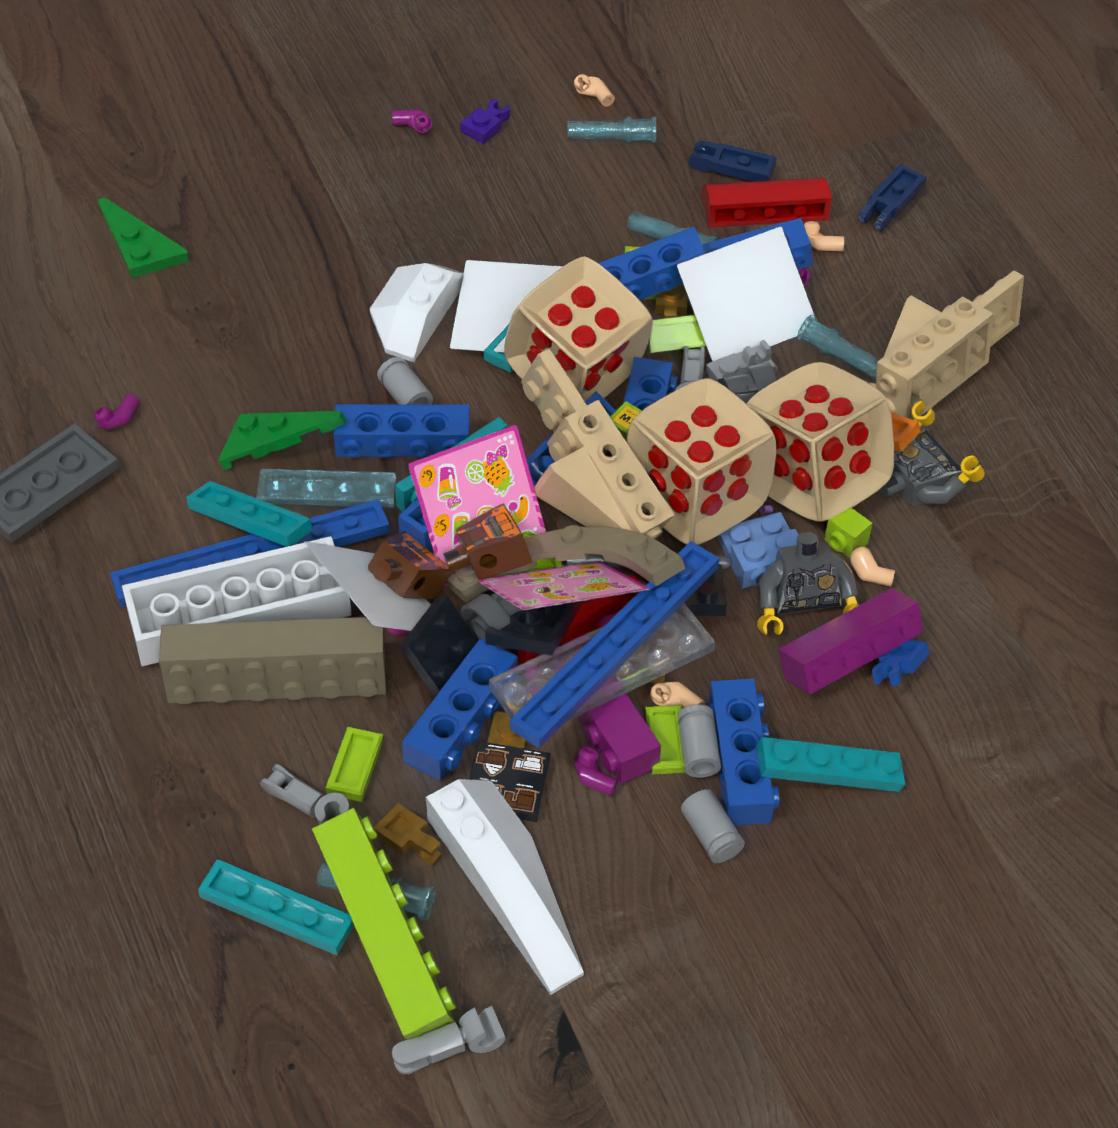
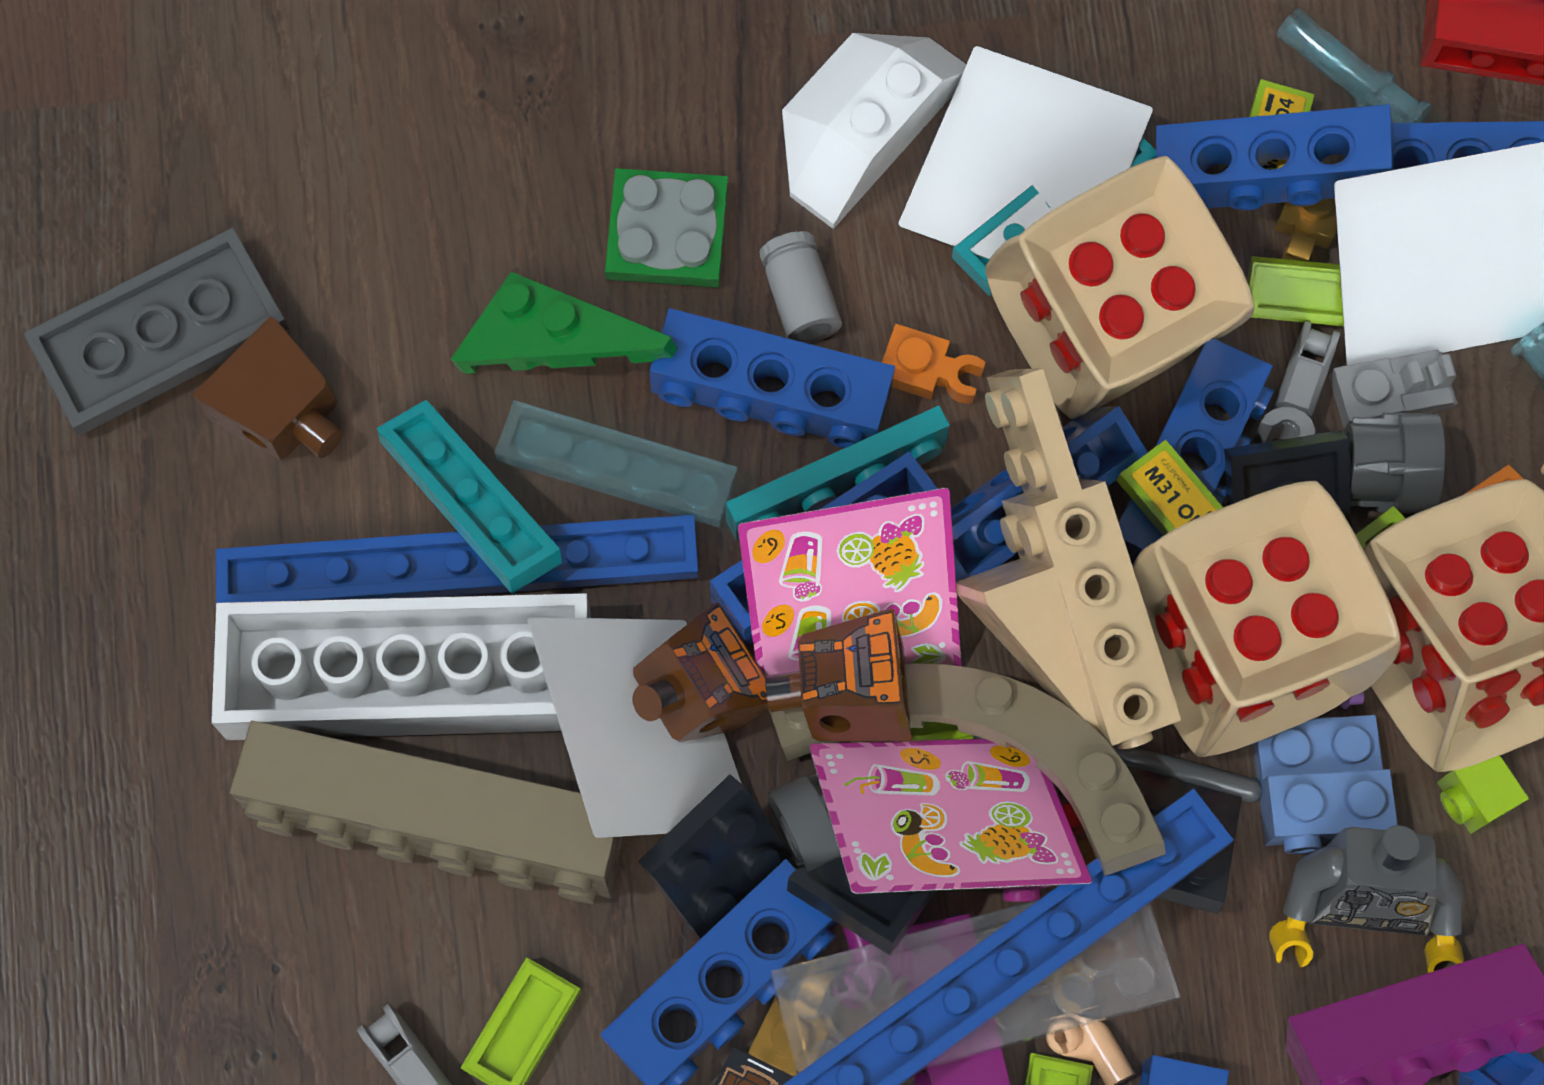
camera: 15 degrees right, 20 degrees up
(111, 419) = (311, 225): magenta arm -> none
(120, 497) = (272, 396): none -> reddish brown torso
(321, 378) = (666, 228): none -> light grey piece
(485, 410) = (923, 365): none -> orange plate
(867, 568) = (1494, 873): light nougat arm -> none

